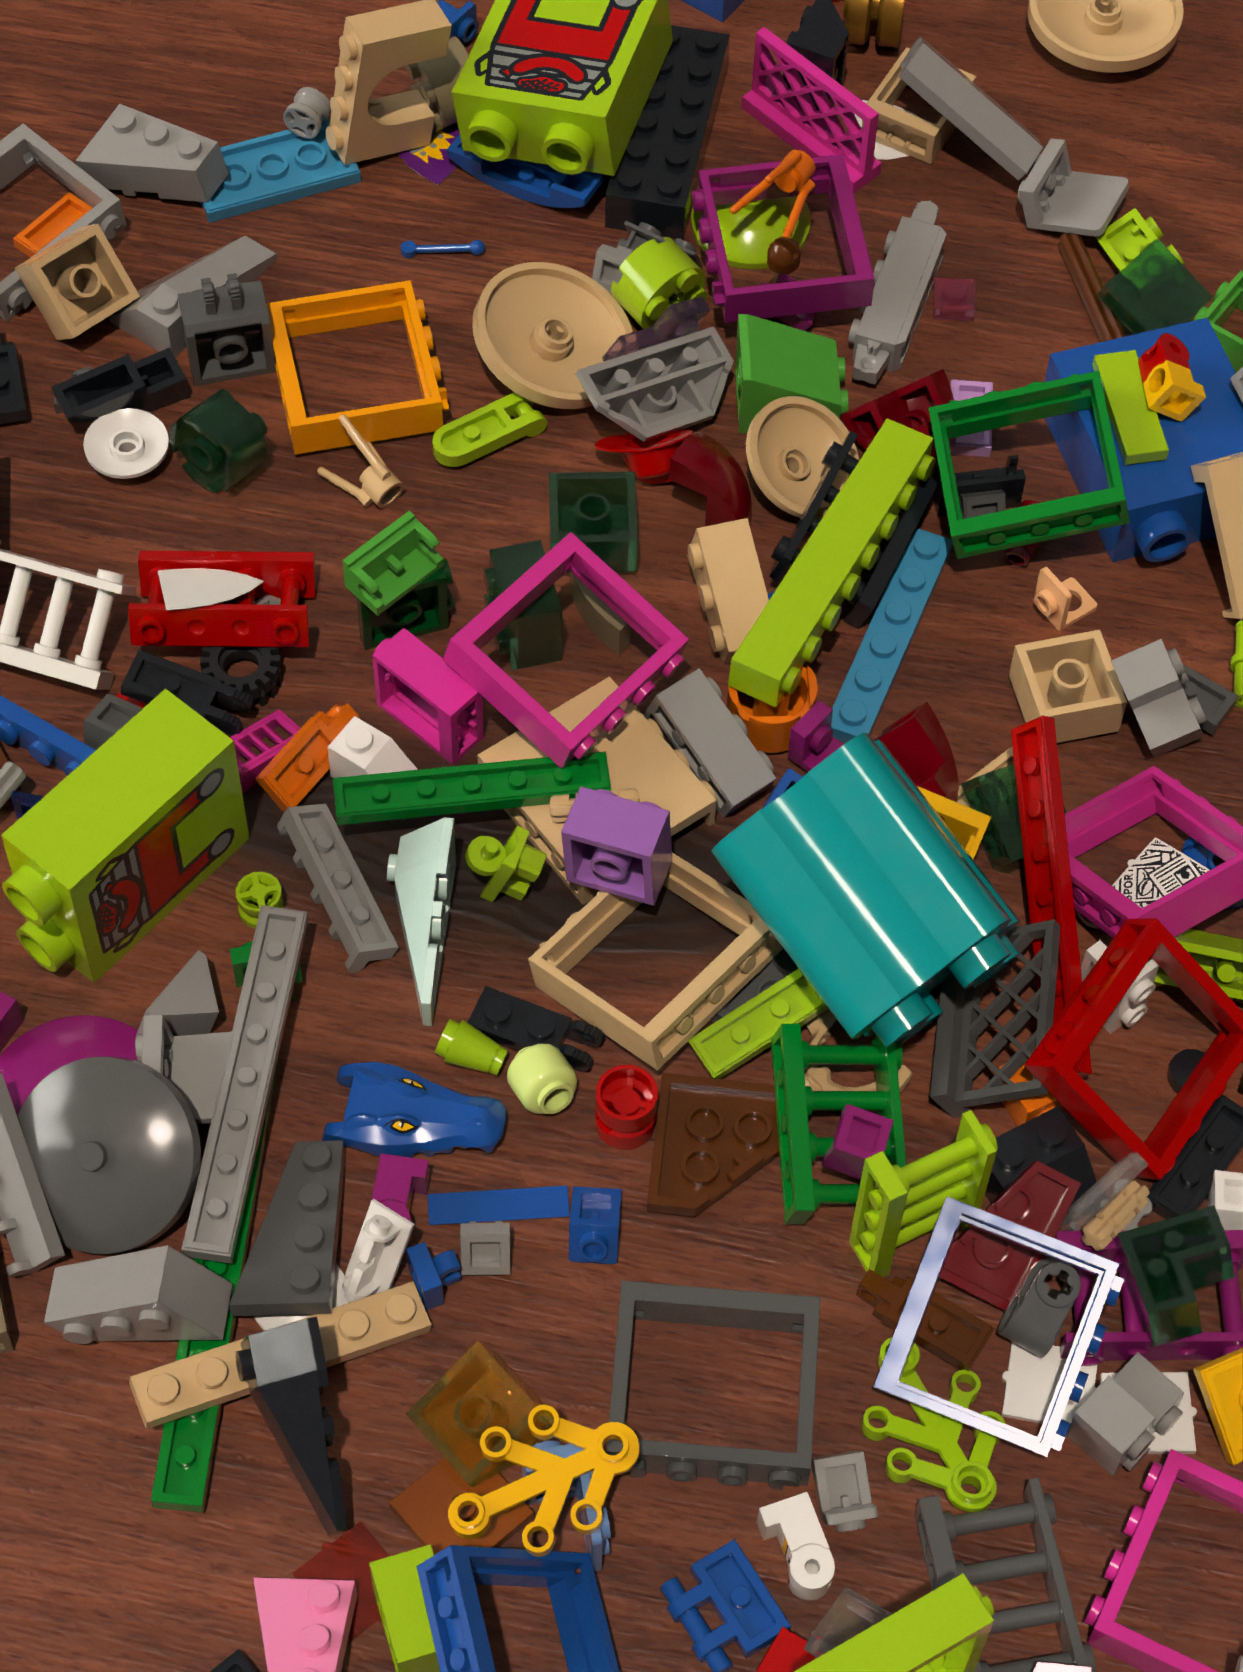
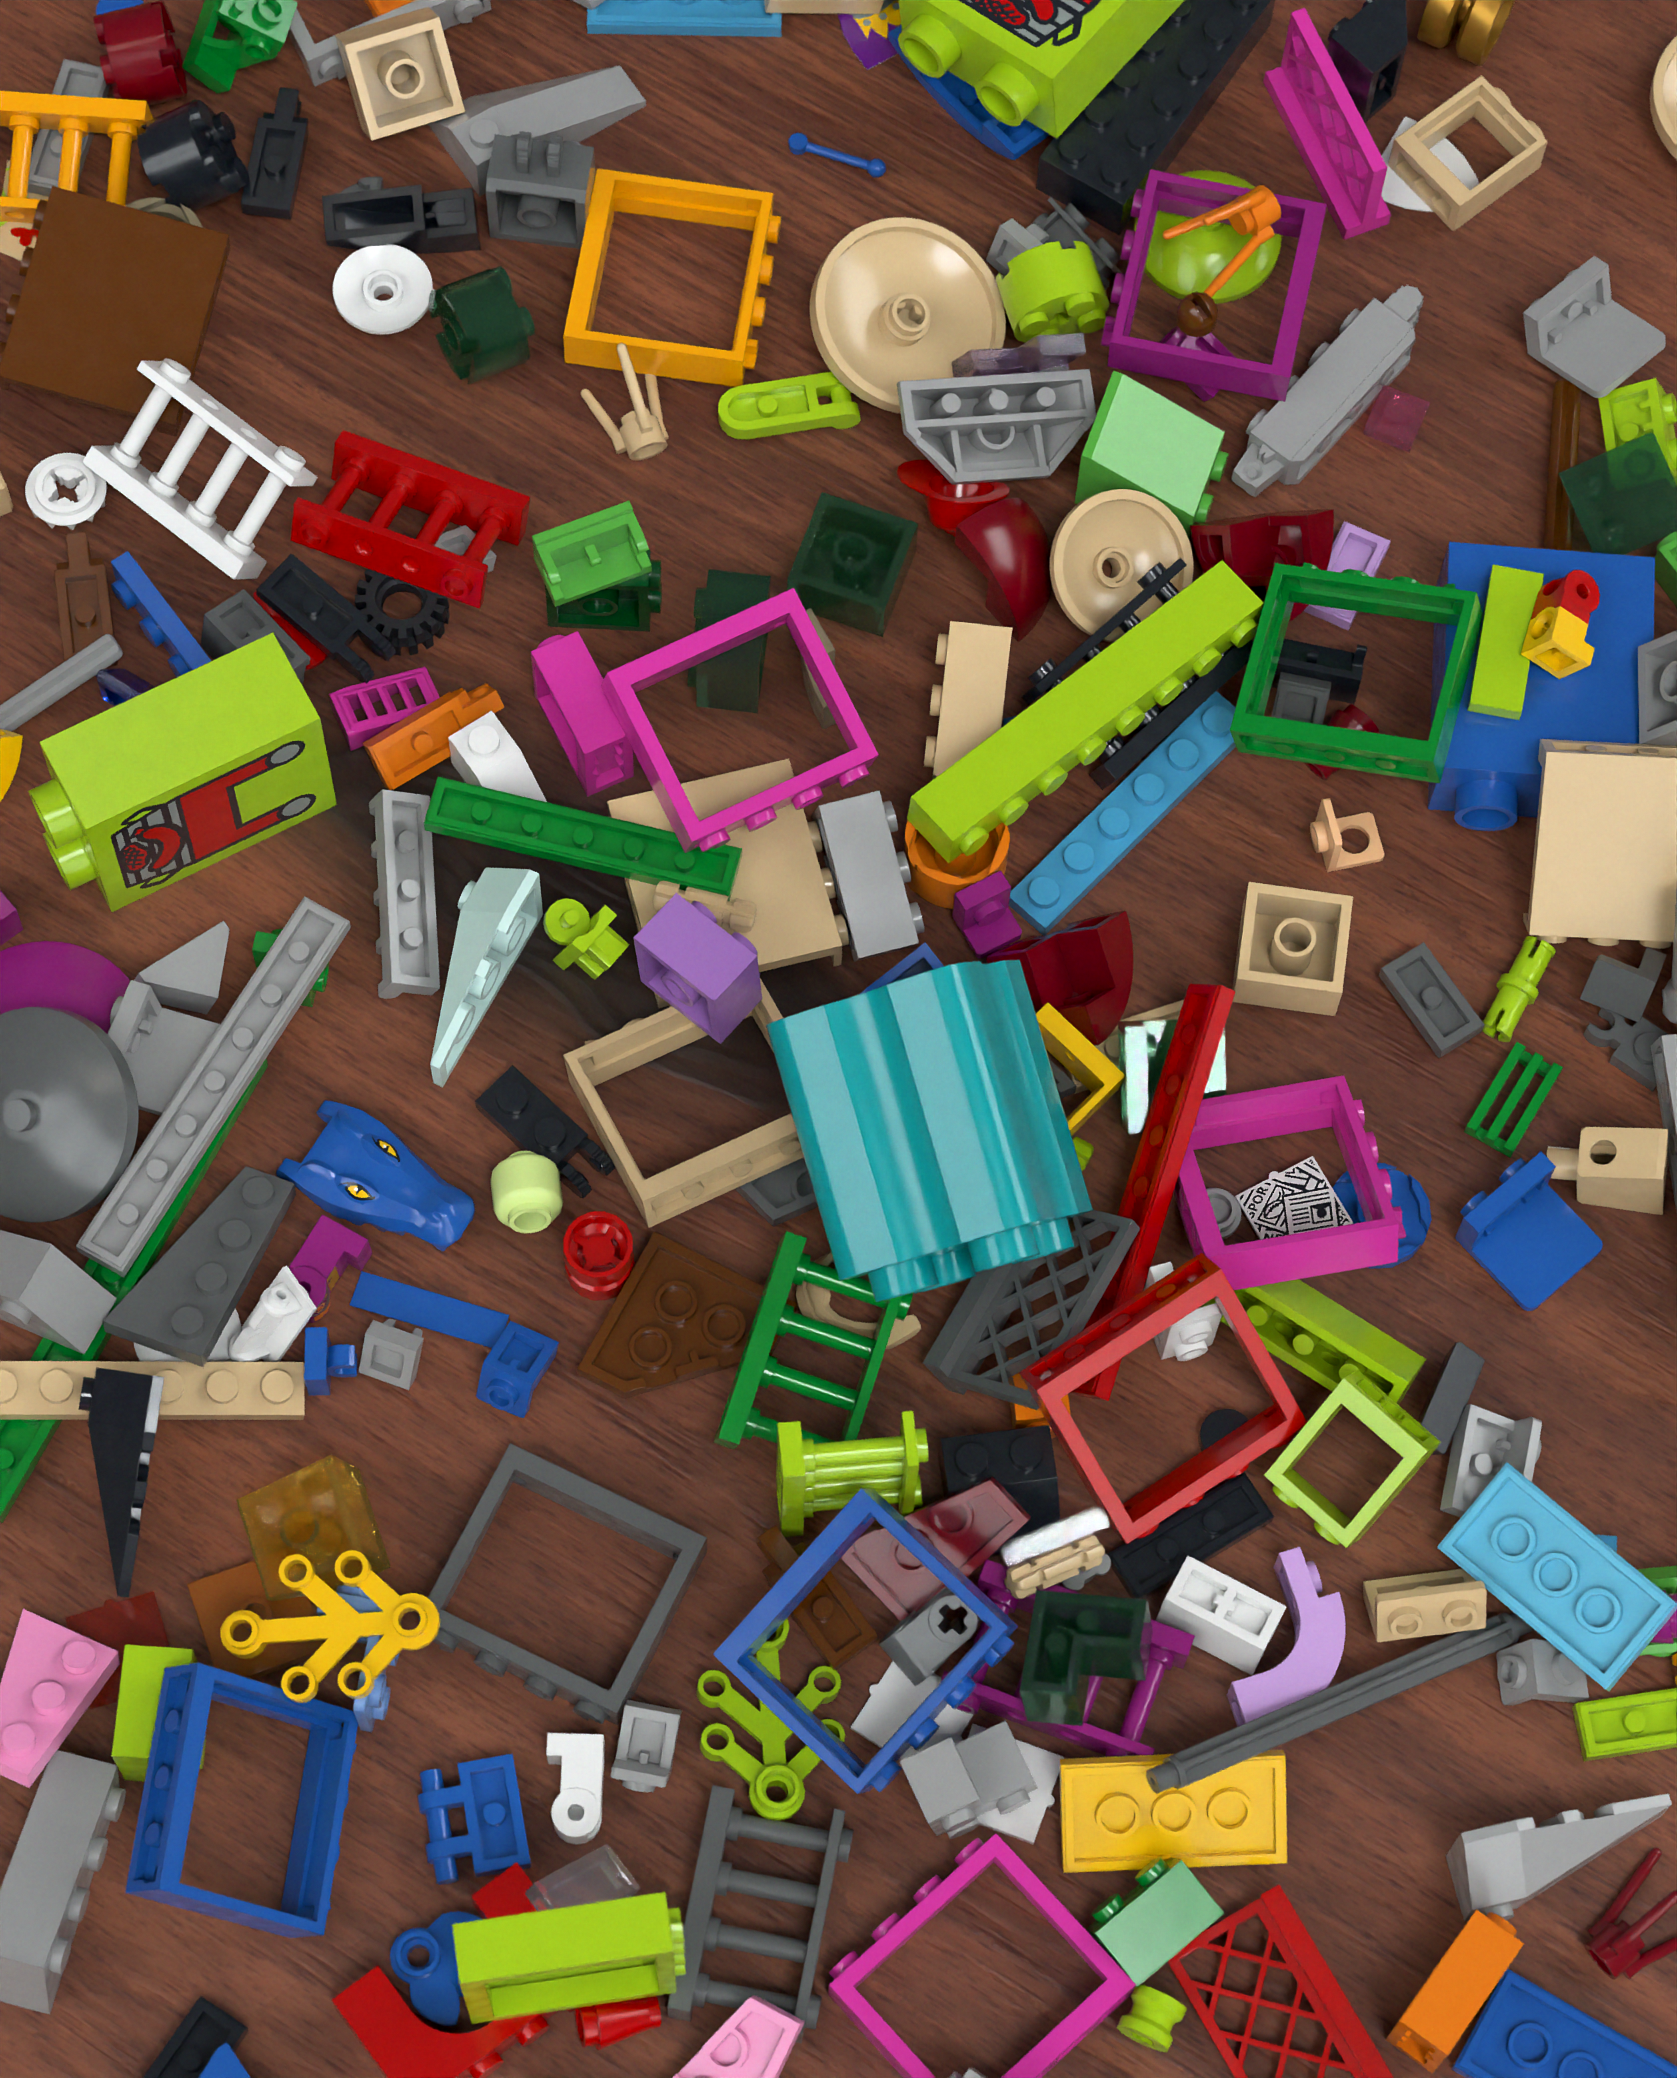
camera: 20 degrees right, 10 degrees up
(202, 586) = (388, 501): white sticker -> none
(257, 888) = (312, 871): lime wheel -> none
(470, 1048) = (467, 1129): lime cone -> none
(752, 1025) = (758, 1219): lime tile -> none
(856, 1138) = (811, 1389): magenta panel -> none
(969, 108) = (1514, 186): light grey slope -> none
(1155, 693) = (1383, 998): light grey brick -> none

